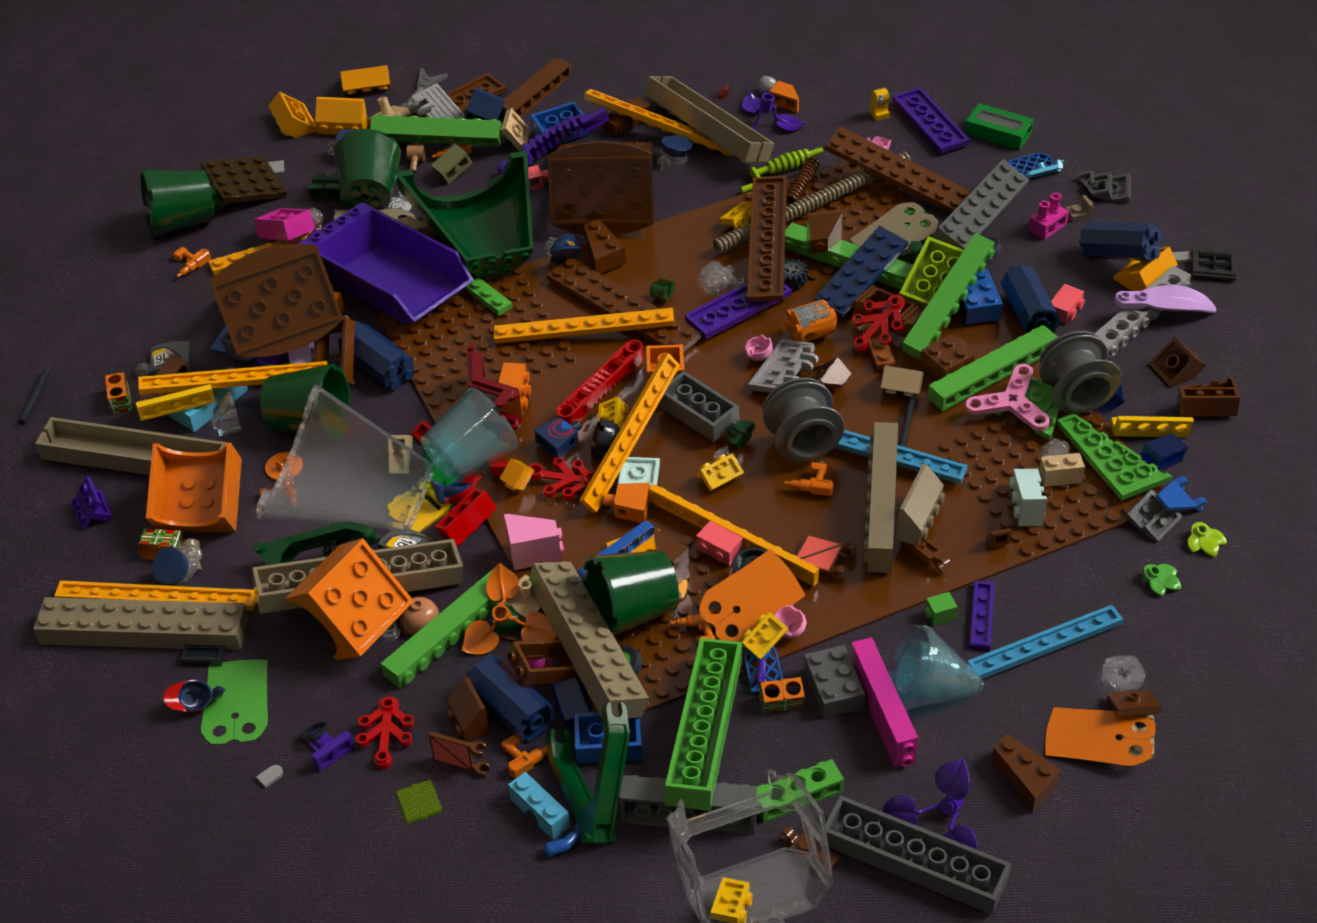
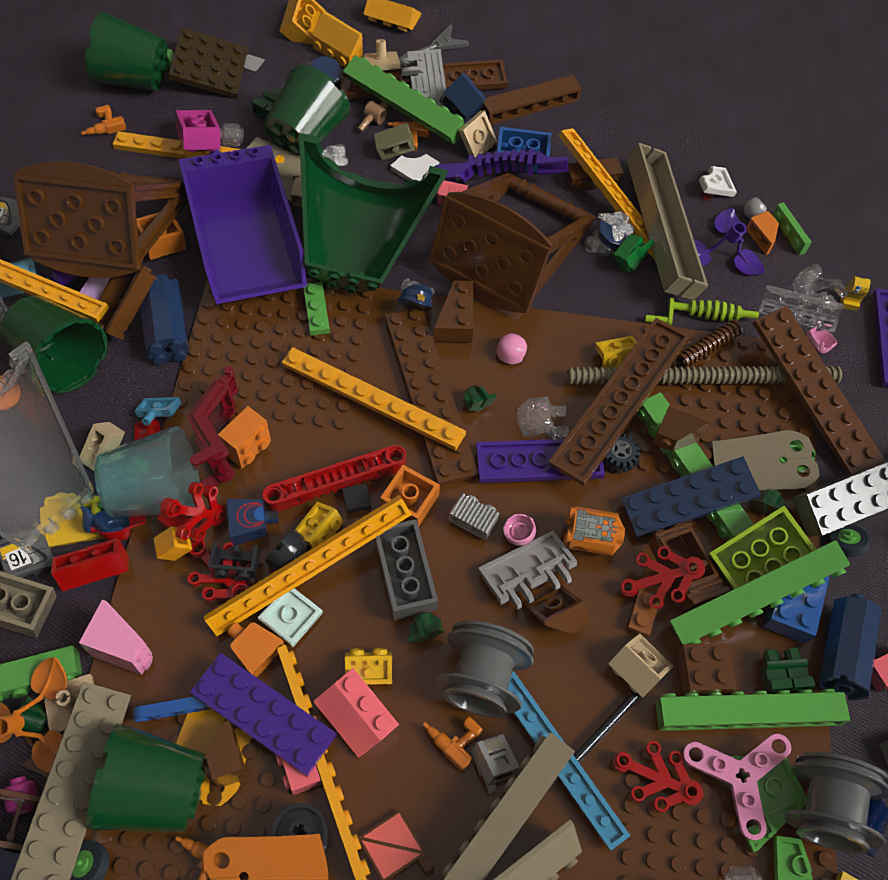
camera: 25 degrees right, 15 degrees up
(423, 410) = (157, 407): none -> dark azure plate
(479, 177) = (413, 168): none -> white tile
(519, 433) = (214, 514): none -> red plant
(573, 463) = (235, 554): none -> black window
(625, 390) = (356, 498): none -> black piece
(660, 251) = (511, 348): none -> bright pink hair
(676, 135) = (619, 223): none -> clear animal
(677, 522) = (264, 714): none -> dark purple plate
(699, 151) = (632, 252): none -> green piece
(719, 357) = (473, 516): none -> light grey brick
(724, 80) = (718, 182): none -> white tile
(734, 494) = (356, 713): none -> coral slope
(804, 86) = (791, 229): none -> bright green plate
(848, 474) = (494, 761): none -> light grey piece
(849, 116) = (810, 281): none -> clear hair
(864, 125) = (803, 305): none -> clear fence
(983, 429) = (661, 778): none -> red plant
(997, 335) = (785, 674): none -> dark green hips

